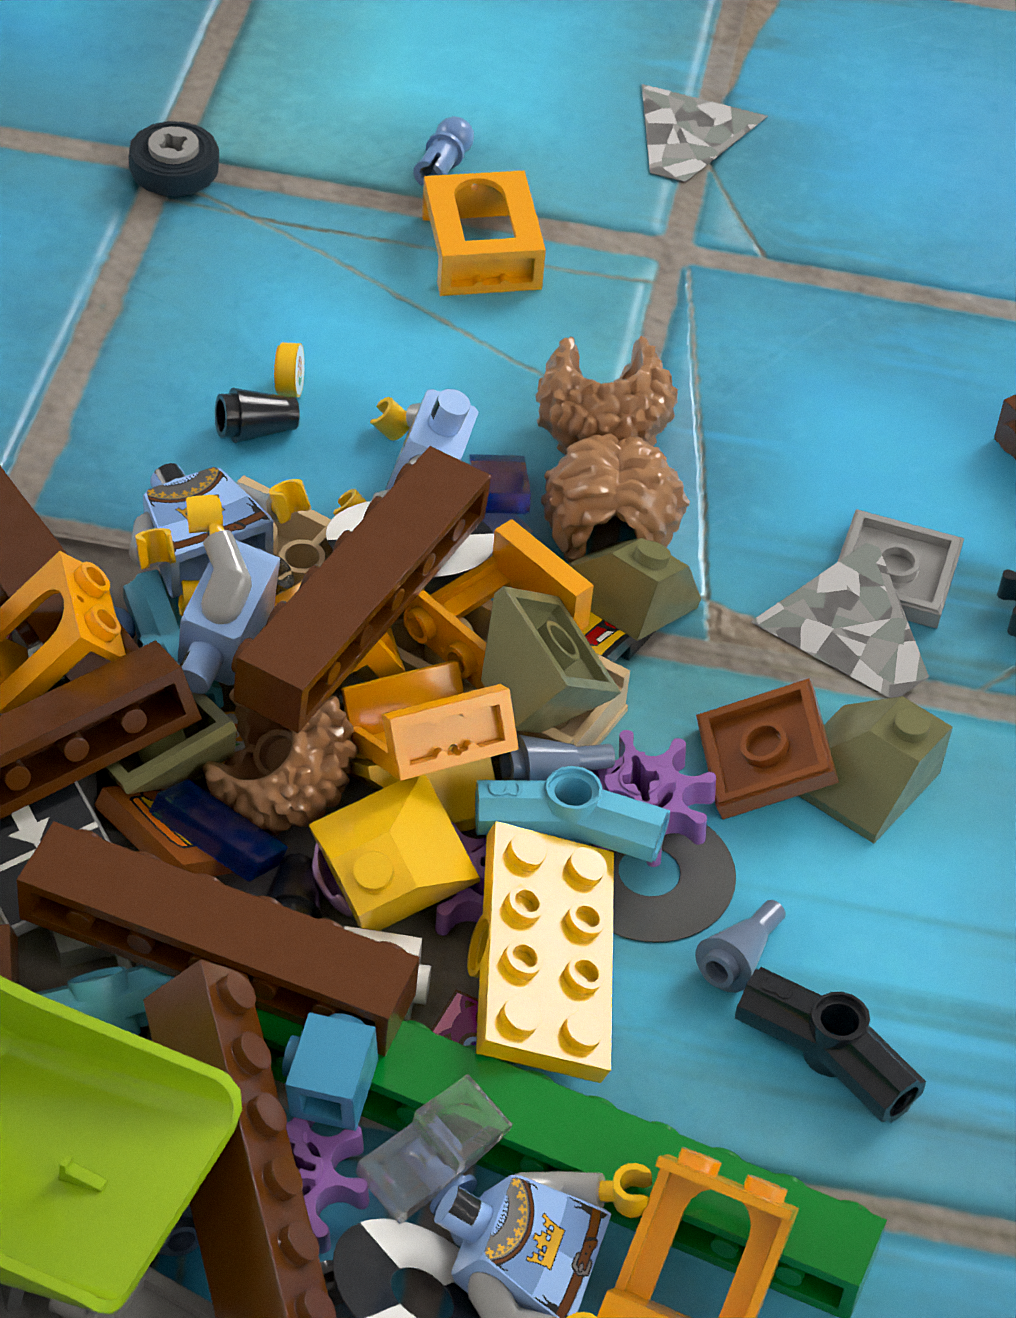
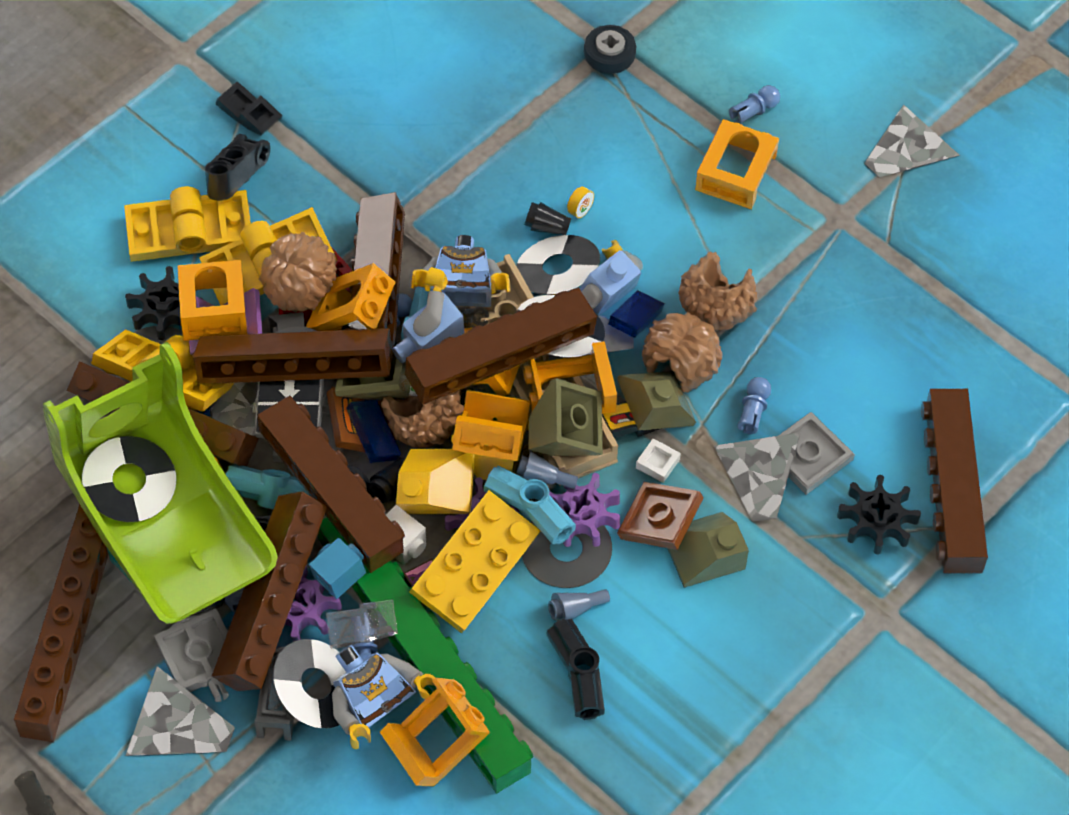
camera: 35 degrees right, 10 degrees up
(364, 440) = (581, 250): none -> sticker
(694, 674) = (658, 460): none -> white plate
(769, 534) = (754, 404): none -> medium blue pin

